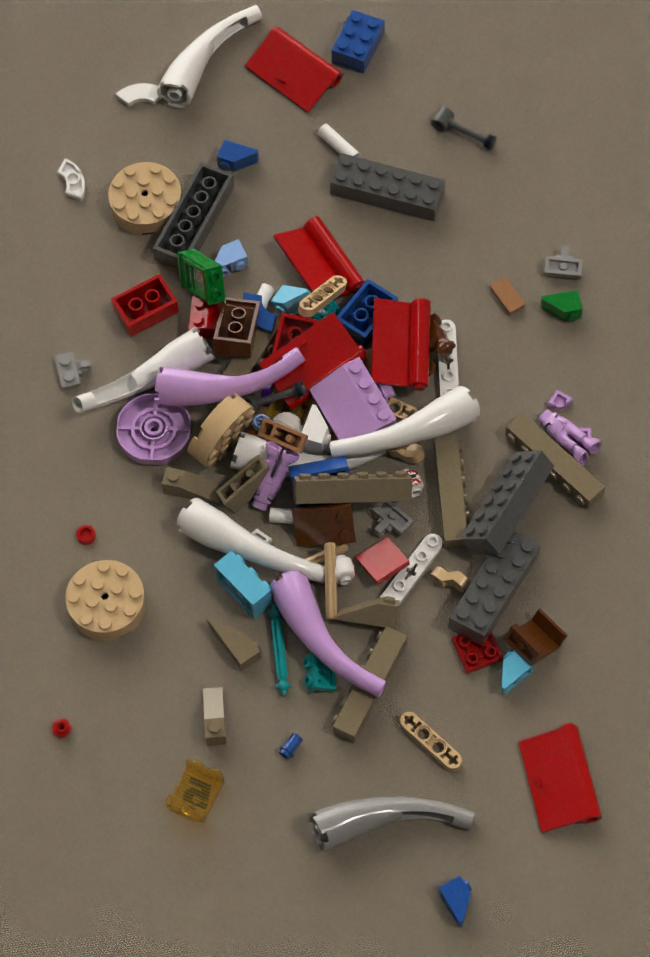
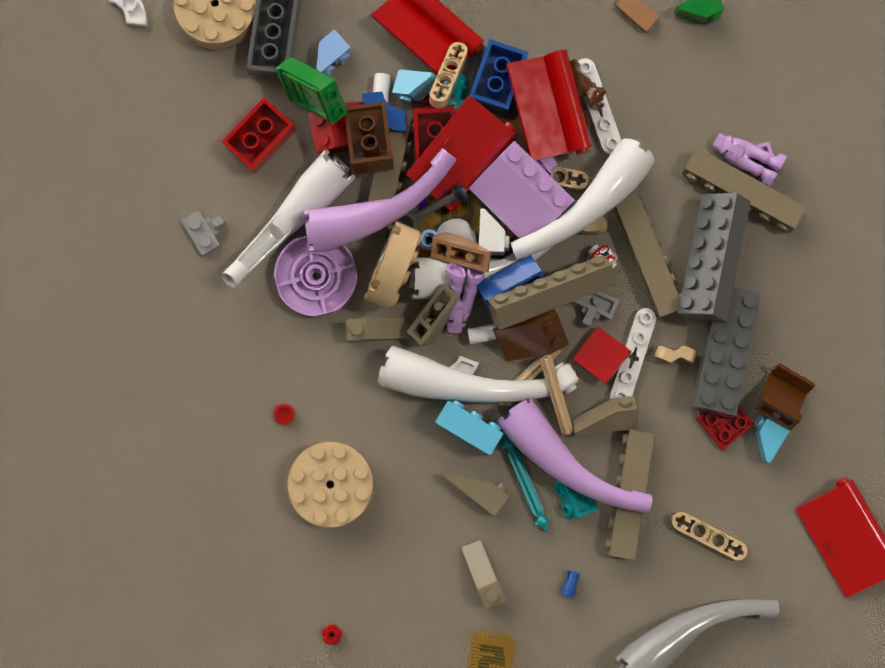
camera: 20 degrees left, 20 degrees up
(559, 400) = (726, 118): lavender tile -> none

